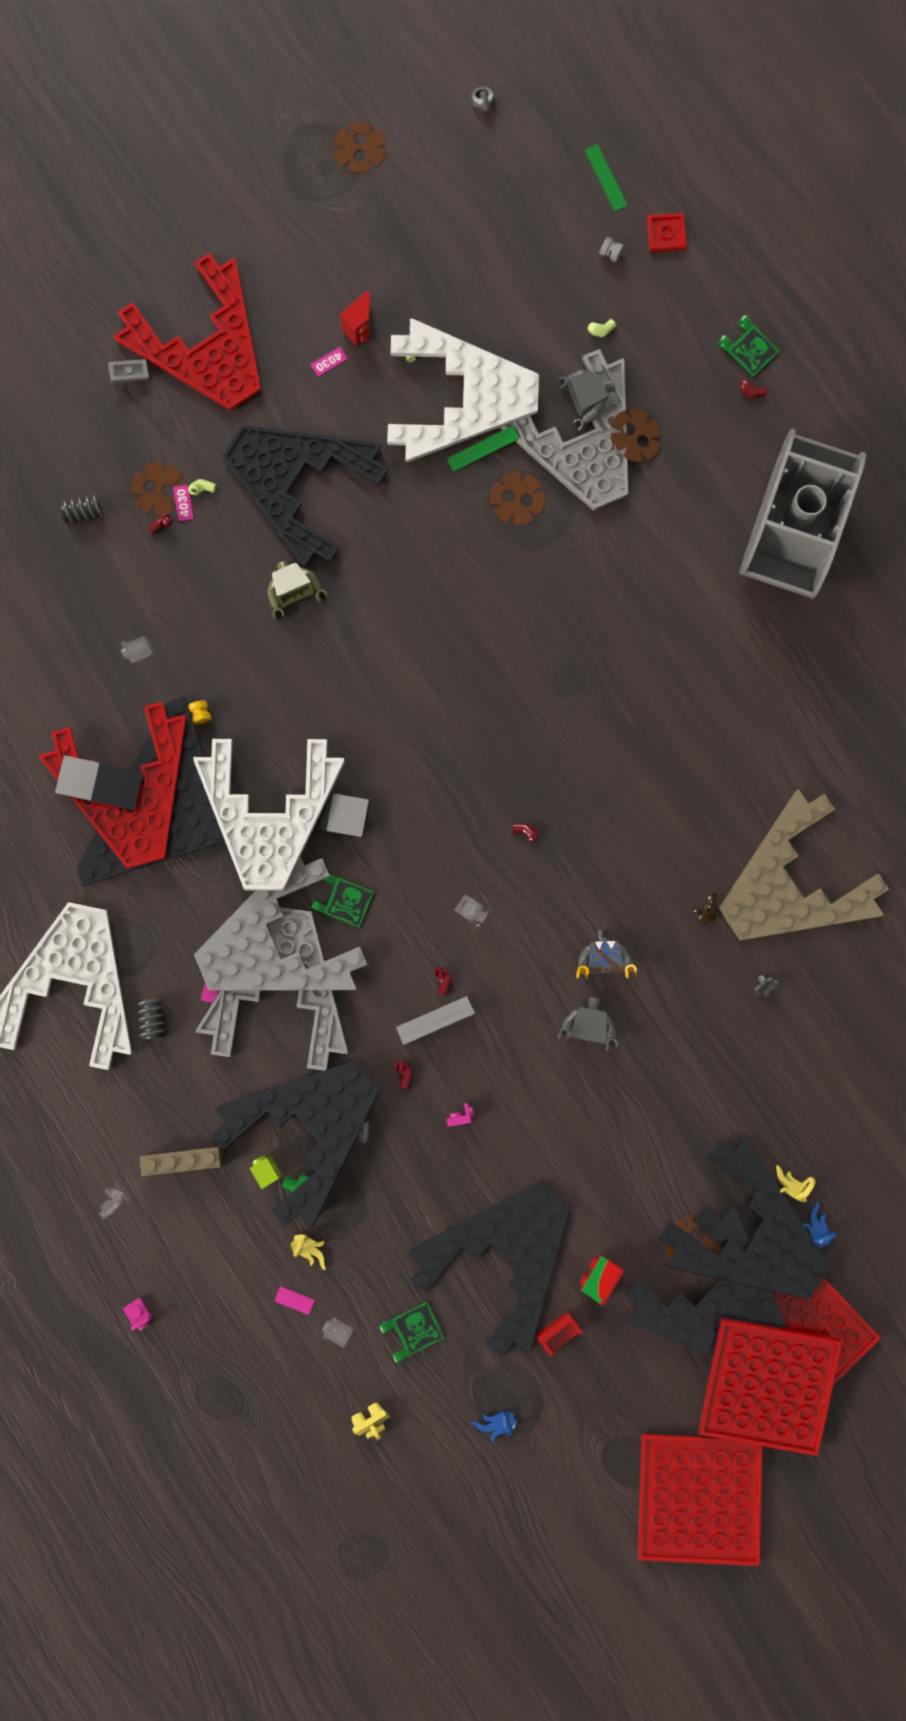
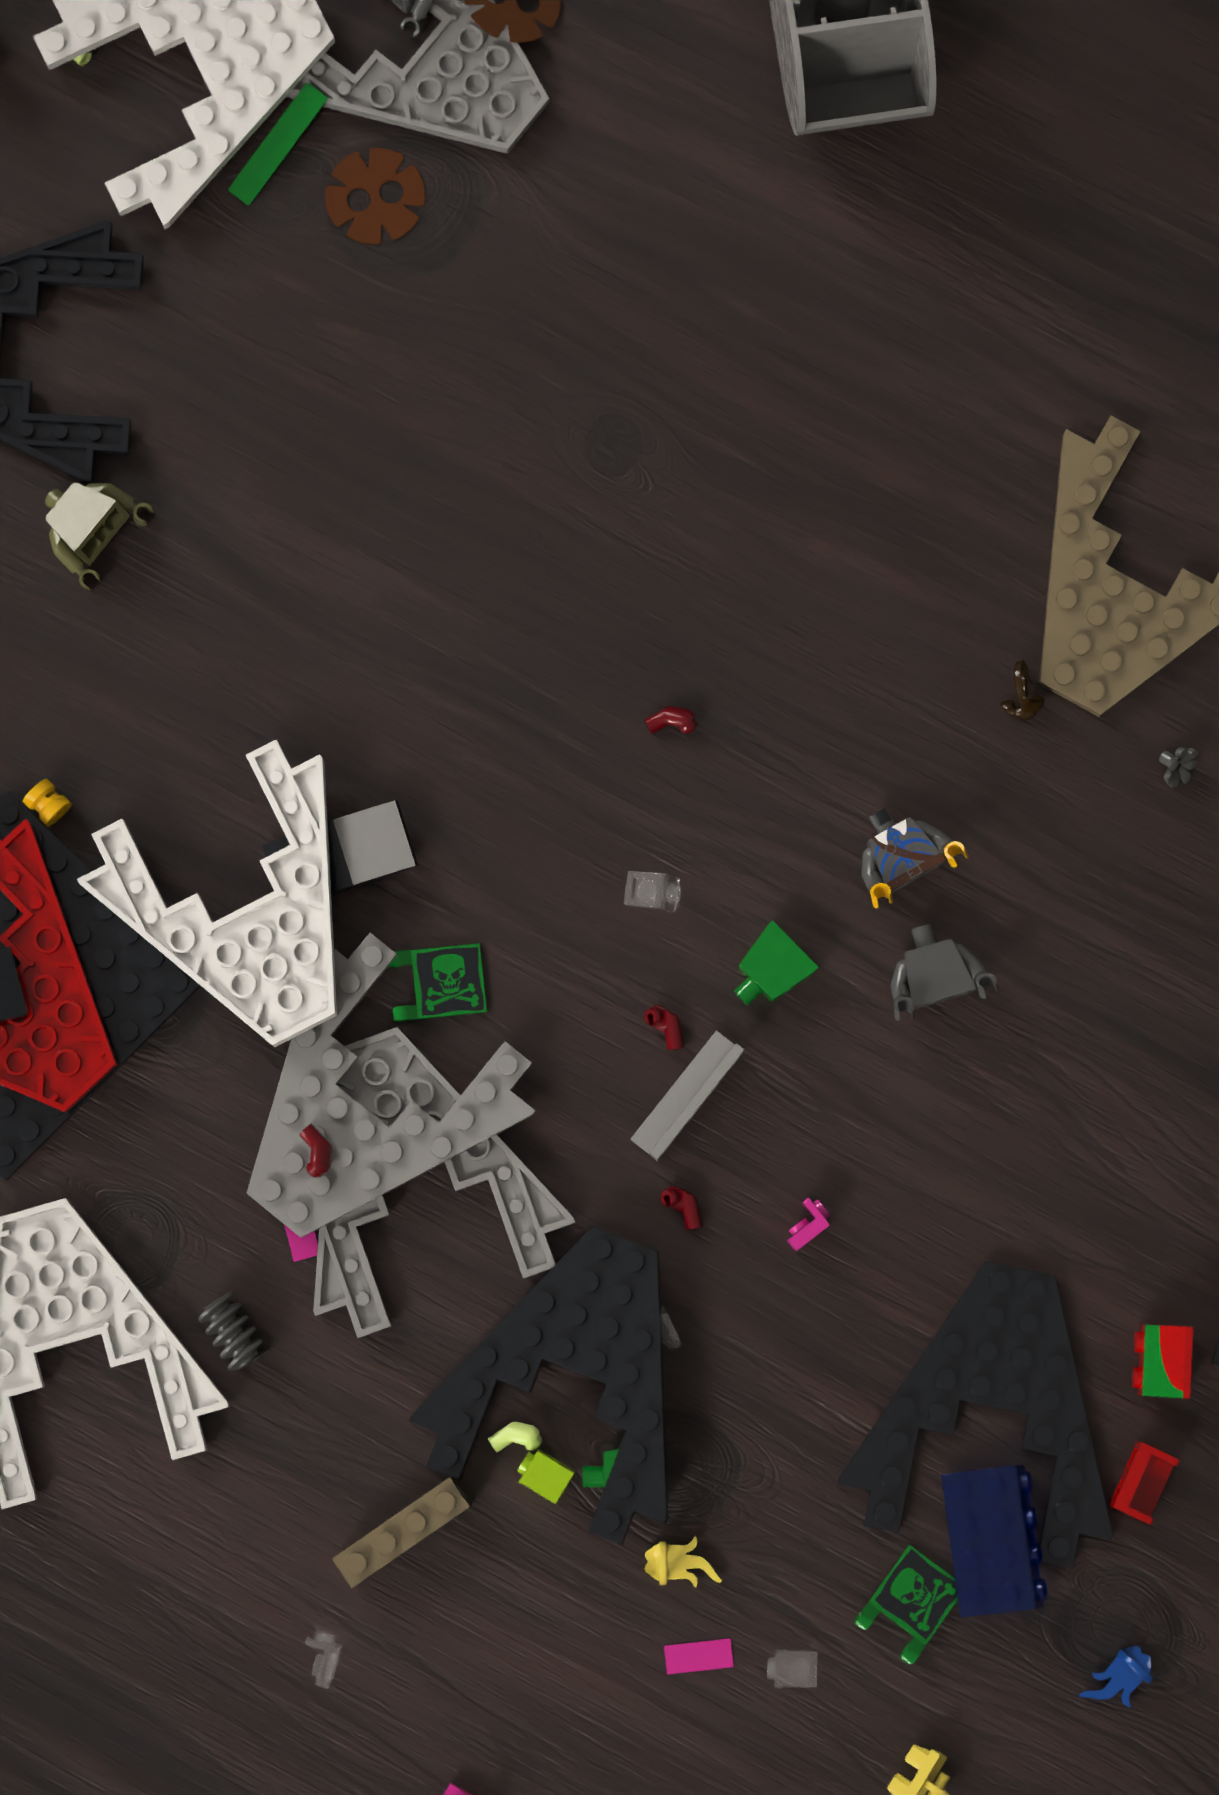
camera: 25 degrees left, 0 degrees up
(240, 953) = (321, 1151): none -> dark red arm
(264, 1142) = (518, 1433): none -> yellowish green arm
(469, 1323) = (994, 1540): none -> clear blue bracket
(511, 979) = (773, 966): none -> green torso

